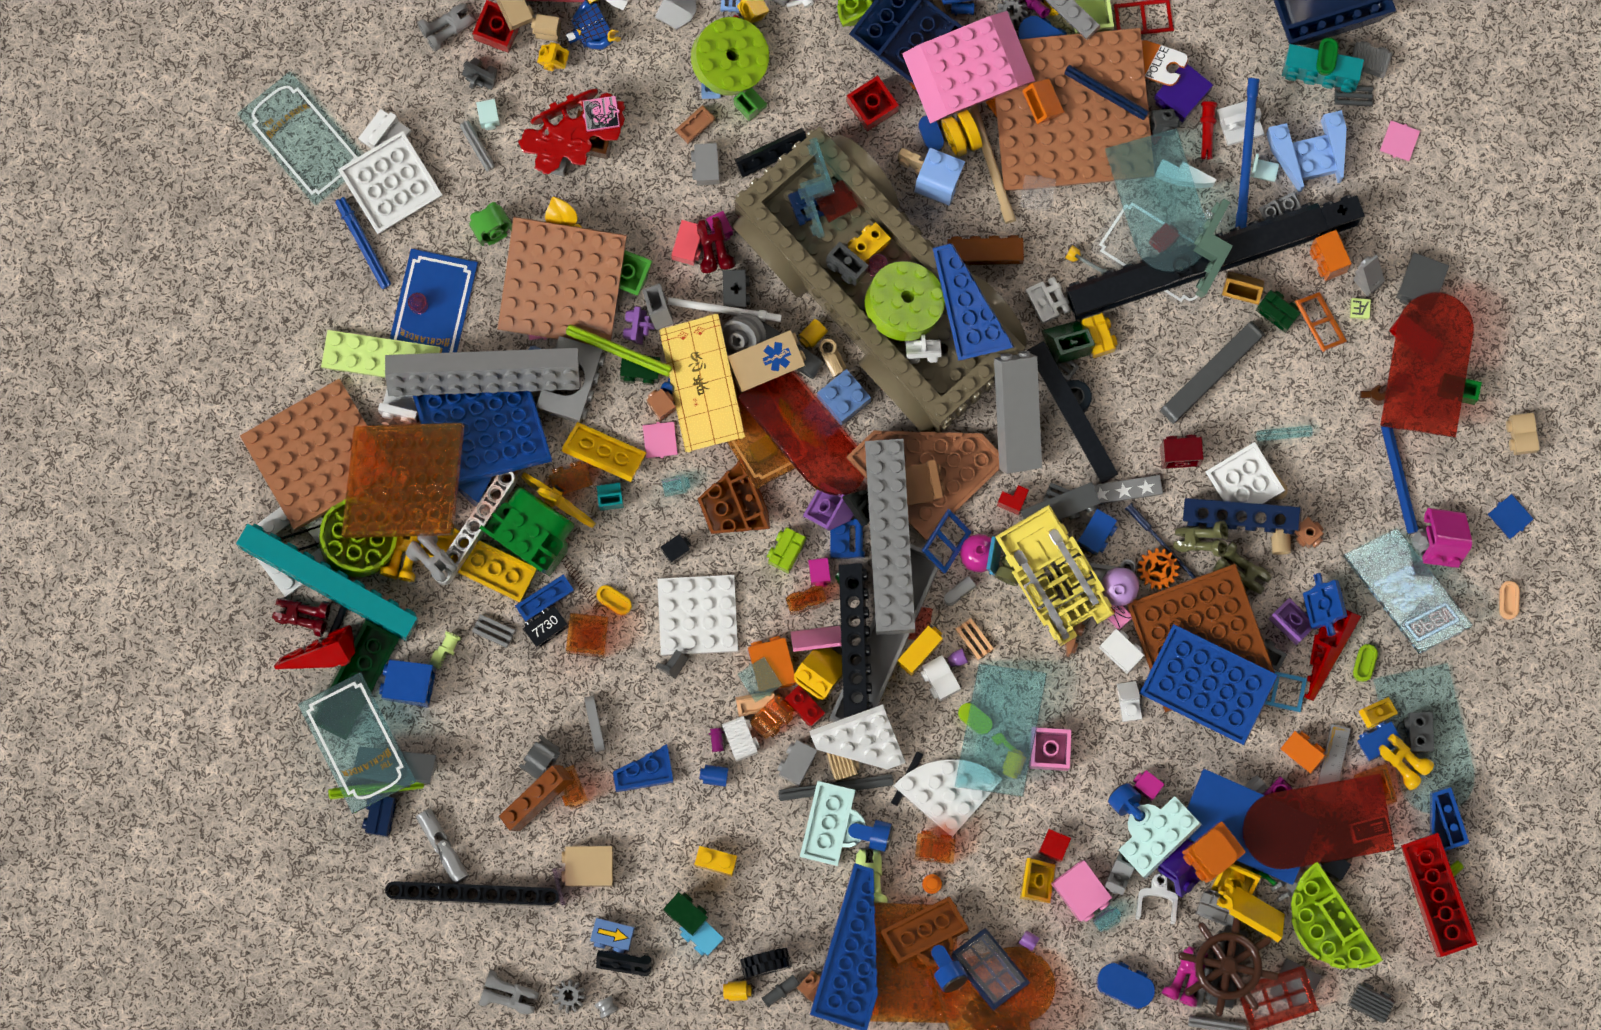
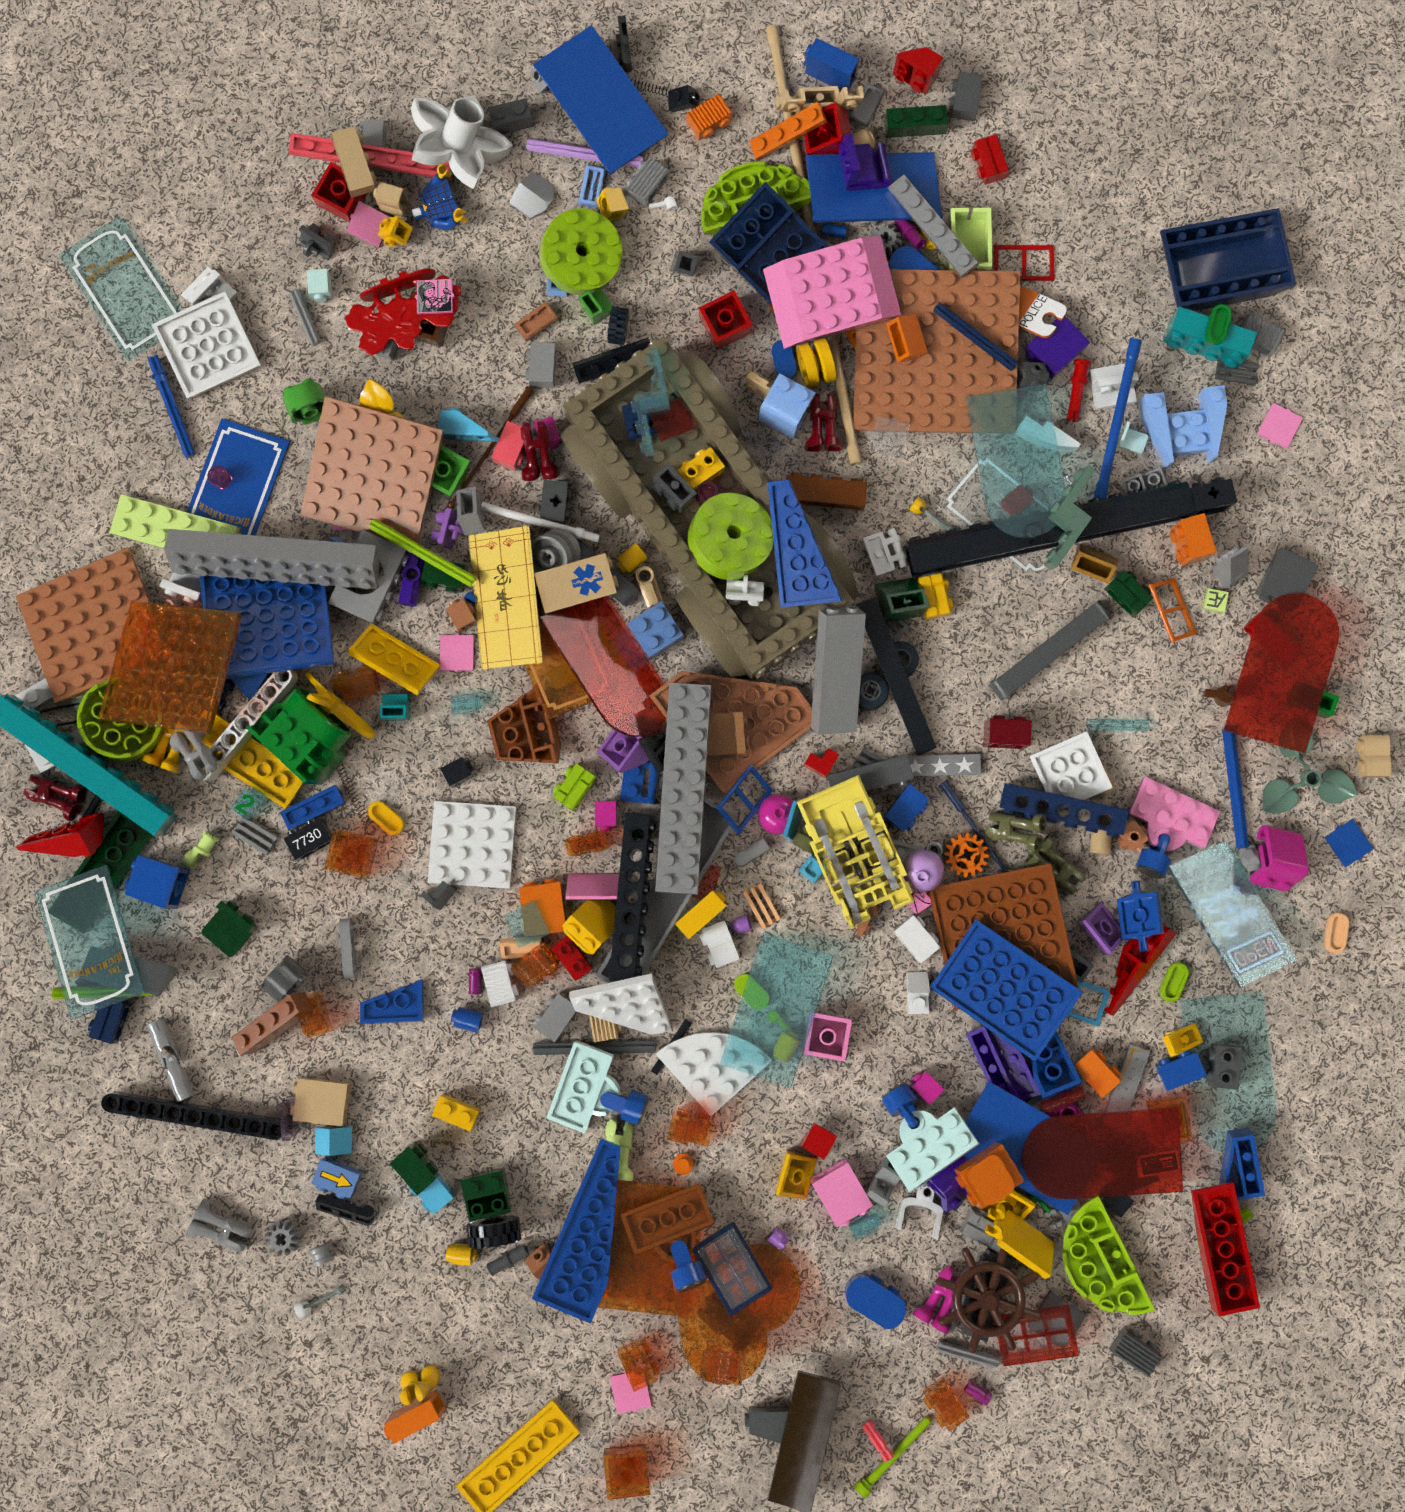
camera: 10 degrees right, 5 degrees up
(451, 18) = (294, 178): light grey piece -> none
(481, 718) = (229, 928): none -> dark green bracket
(484, 601) = (248, 803): none -> clear light blue brick
(525, 52) = (366, 223): none -> bright pink piece
(604, 901) = (333, 1140): none -> medium azure piece
(609, 386) = (410, 588): none -> dark purple piece
(641, 231) = (460, 427): none -> medium azure slope
(685, 211) = (513, 414): none -> reddish brown piece
(753, 932) = (486, 1194): none -> dark green slope
(773, 120) = (618, 325): none -> black wheel
(827, 55) = (684, 263): none -> dark grey brick
(970, 206) = (815, 442): none -> dark red piece
(1017, 600) = (811, 869): none -> medium azure tile
(1053, 436) = (870, 684): none -> black wheel
(1215, 753) = (1002, 1063): none -> dark purple brick
(1263, 754) = (1054, 1070): none -> blue wedge
(1274, 778) = (1063, 1100): none -> clear red pin
(1342, 517) = (1170, 822): none -> bright pink plate
(1421, 765) = (1208, 1115): yellow piece -> none
(1491, 467) = (1333, 788): none -> sand green plant

